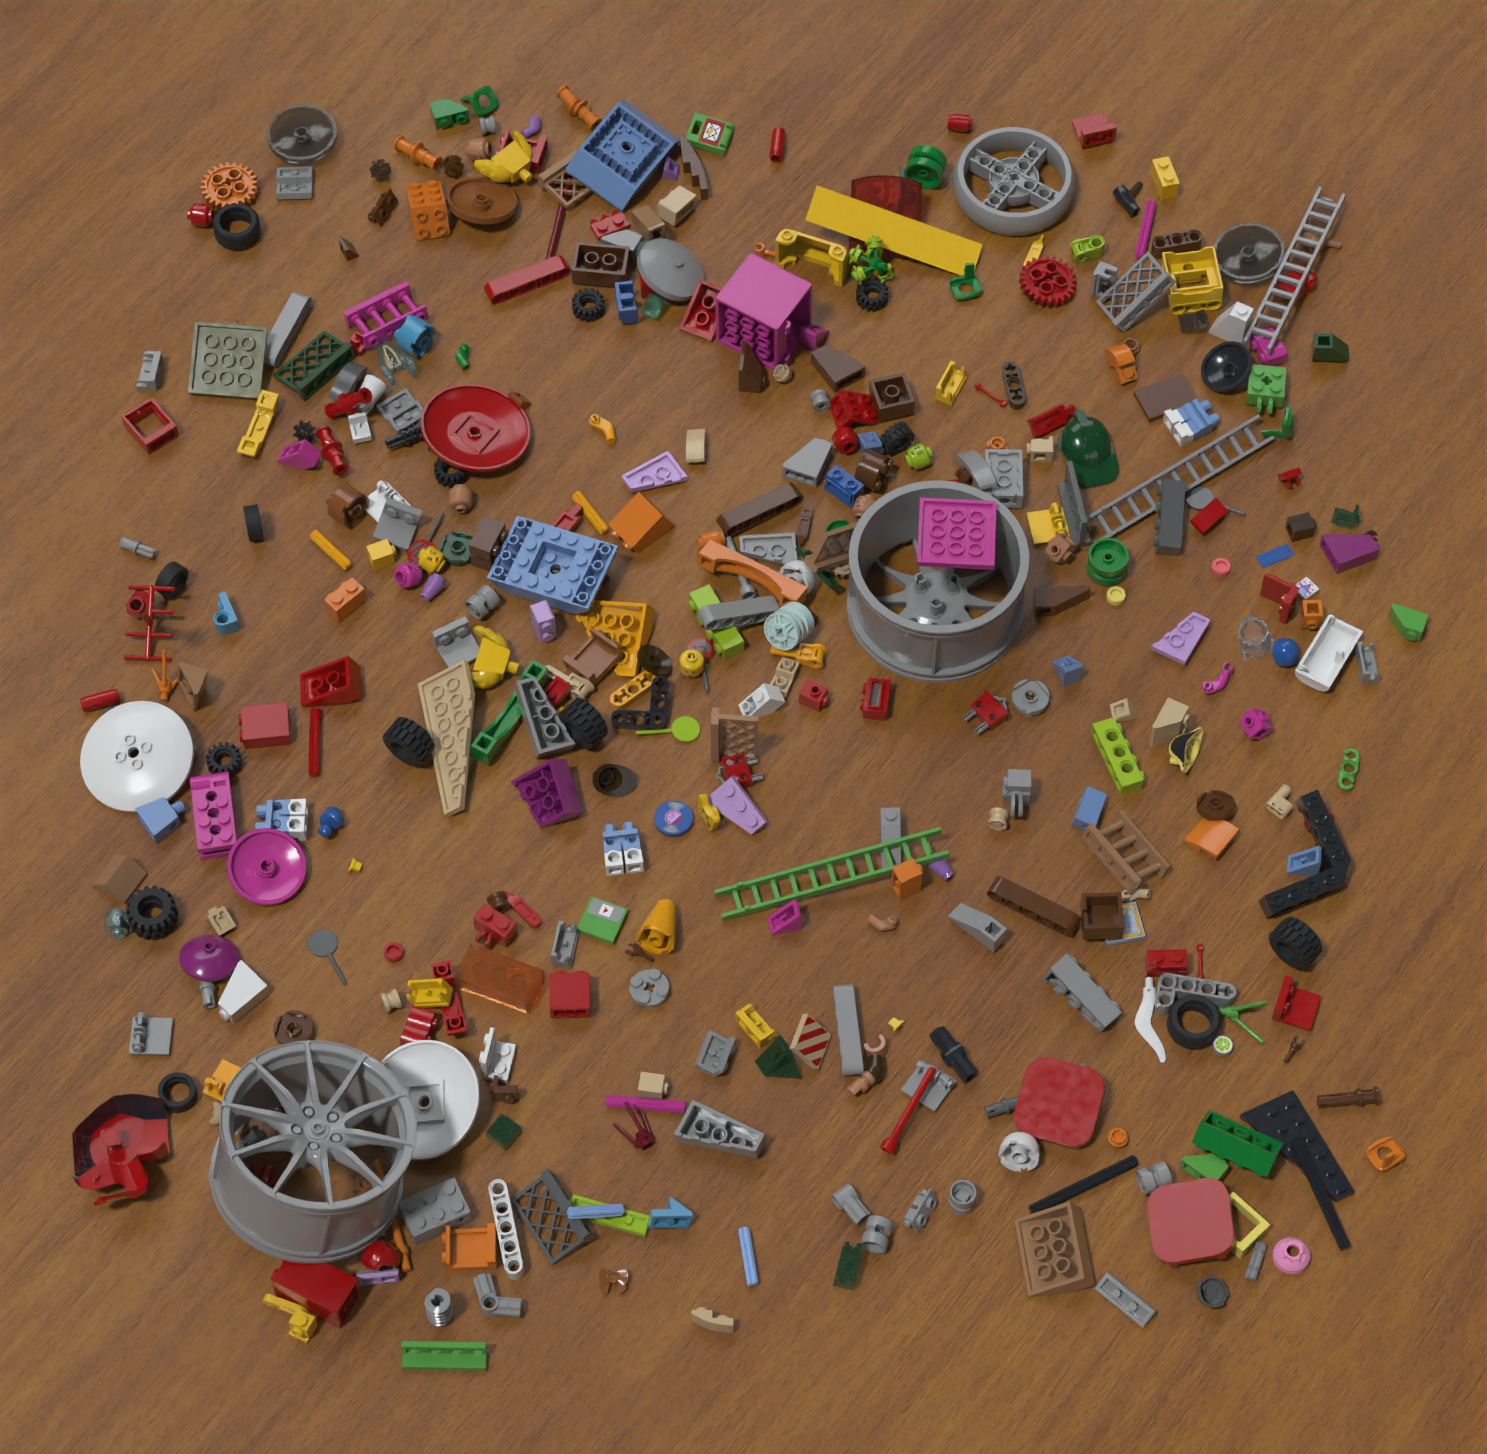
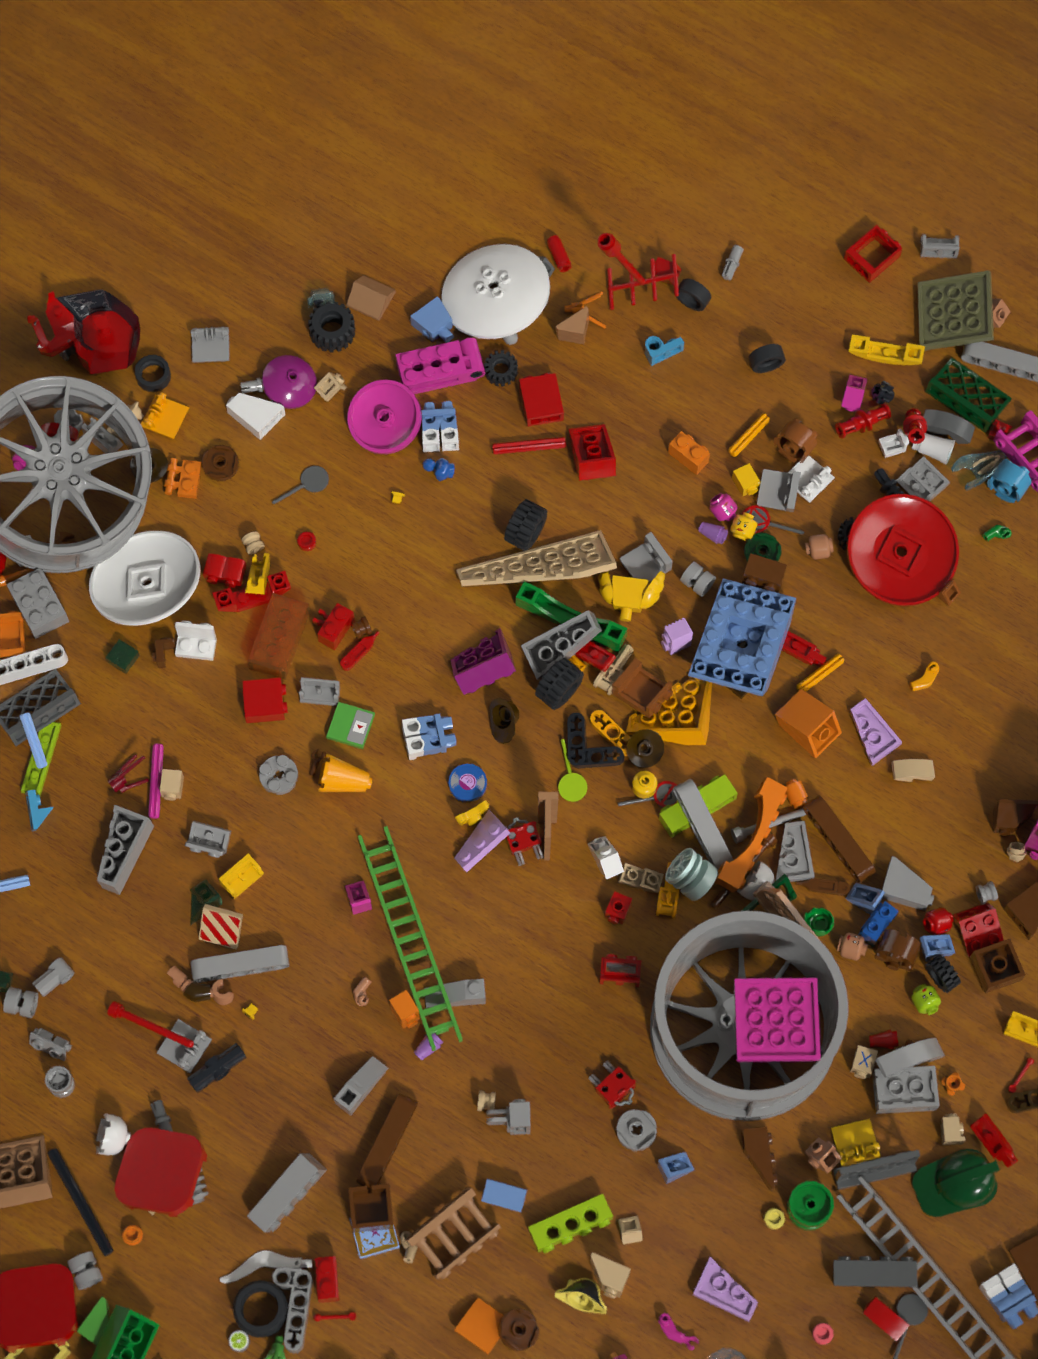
camera: 85 degrees right, 10 degrees up
(818, 493) = (865, 897): none -> medium blue slope

